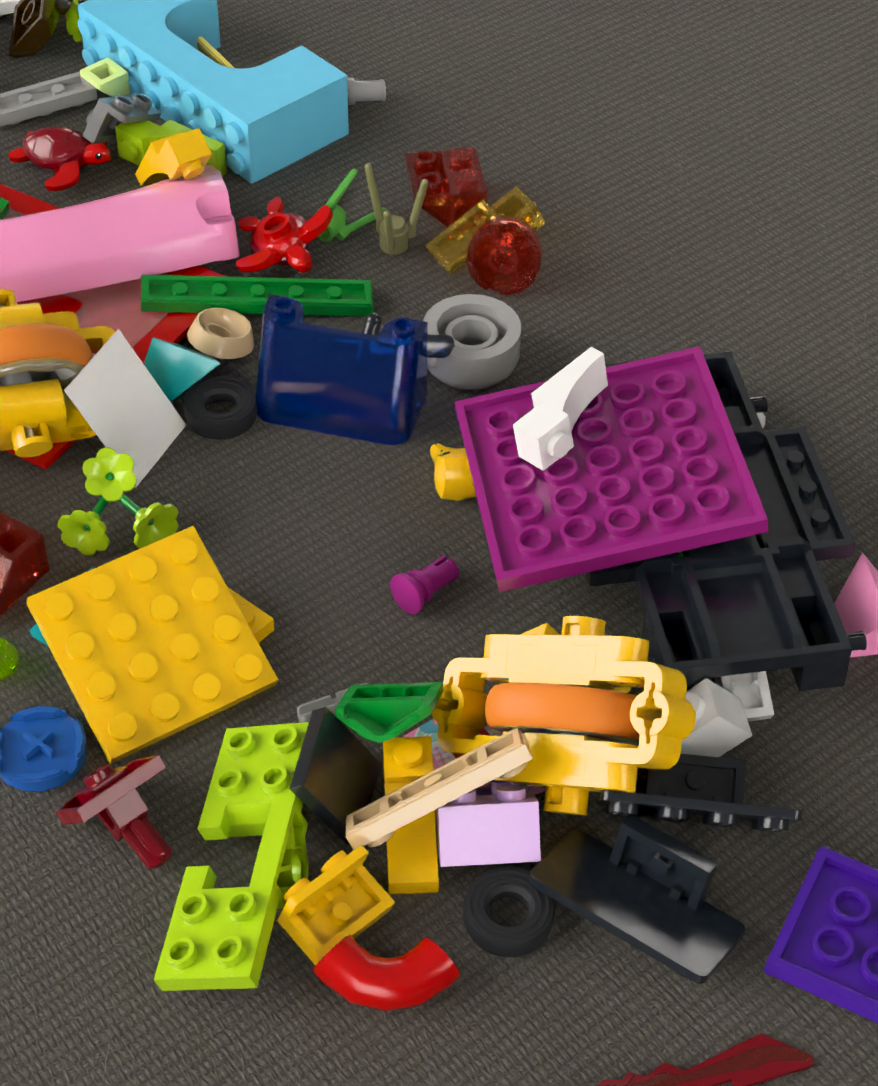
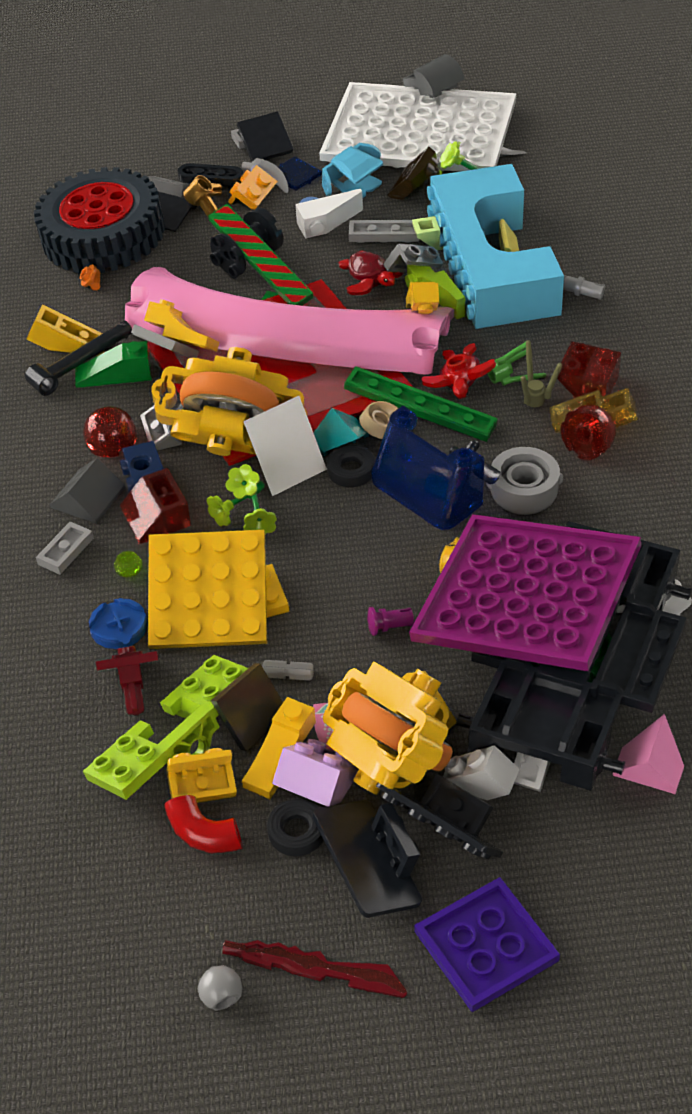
camera: 35 degrees right, 0 degrees up
(380, 819) = (328, 734): tan plate -> none
(387, 710) = (297, 679): green slope -> none
(546, 430) = (520, 539): white slope -> none

